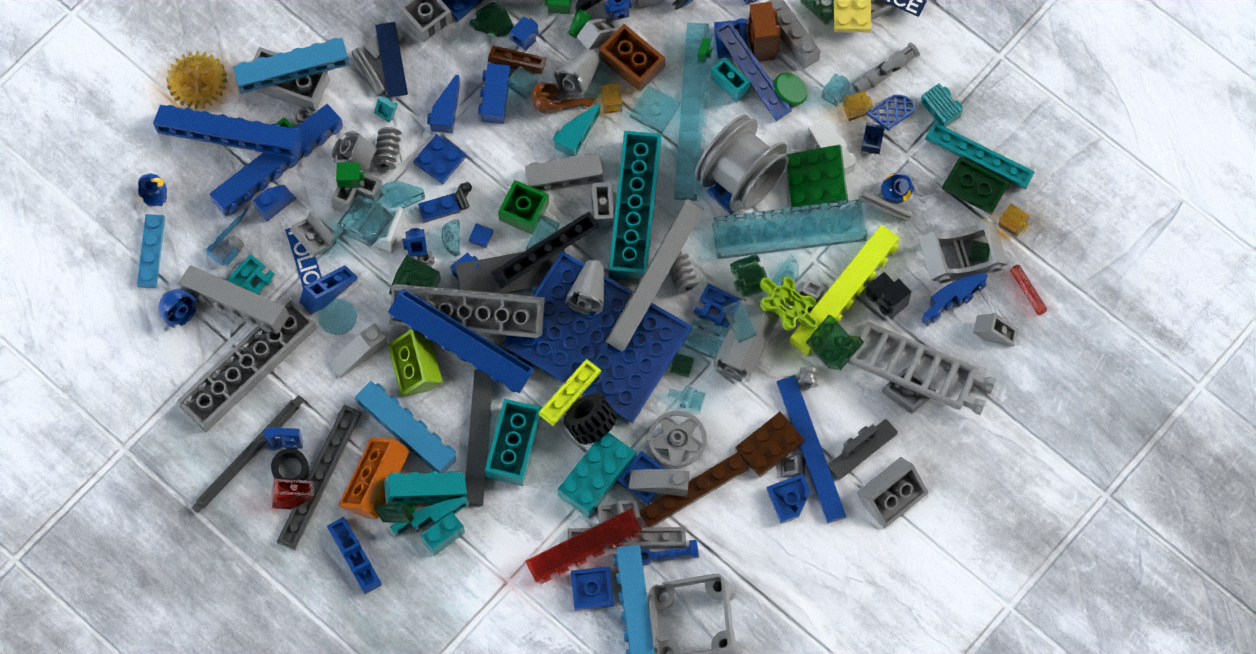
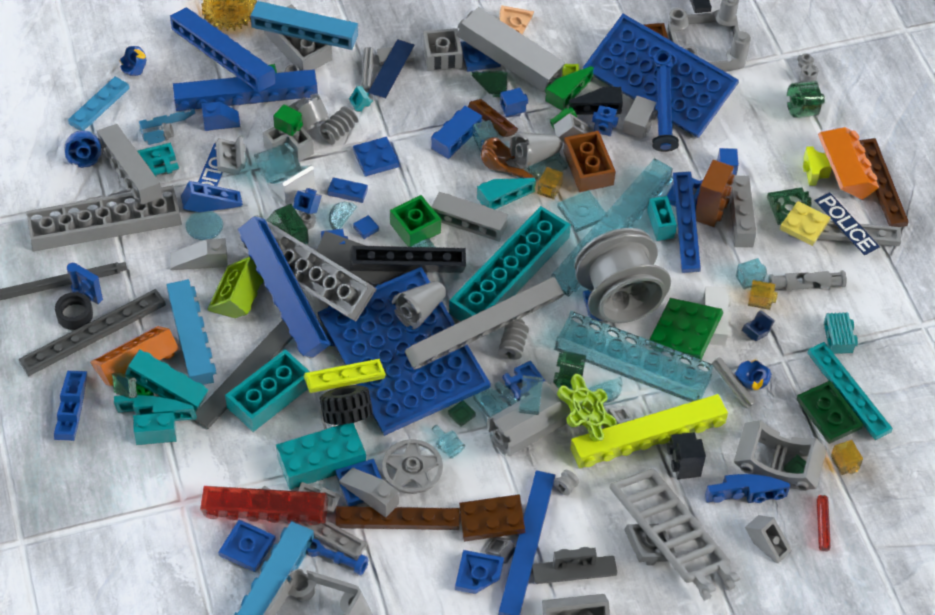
camera: 30 degrees right, 15 degrees down
(291, 493) = (56, 326): clear red slope -> none
(401, 194) = (324, 163): clear light blue slope -> none
(444, 110) = (409, 121): blue slope -> none
(462, 193) = (374, 188): pearl dark grey arm -> none
(602, 204) = (482, 251): light grey brick -> none
(704, 50) = (652, 182): green plate -> none
(790, 88) = (711, 253): green piece -> none
(833, 344) = (606, 463): clear green bracket -> none
(906, 100) = (770, 305): blue window -> none

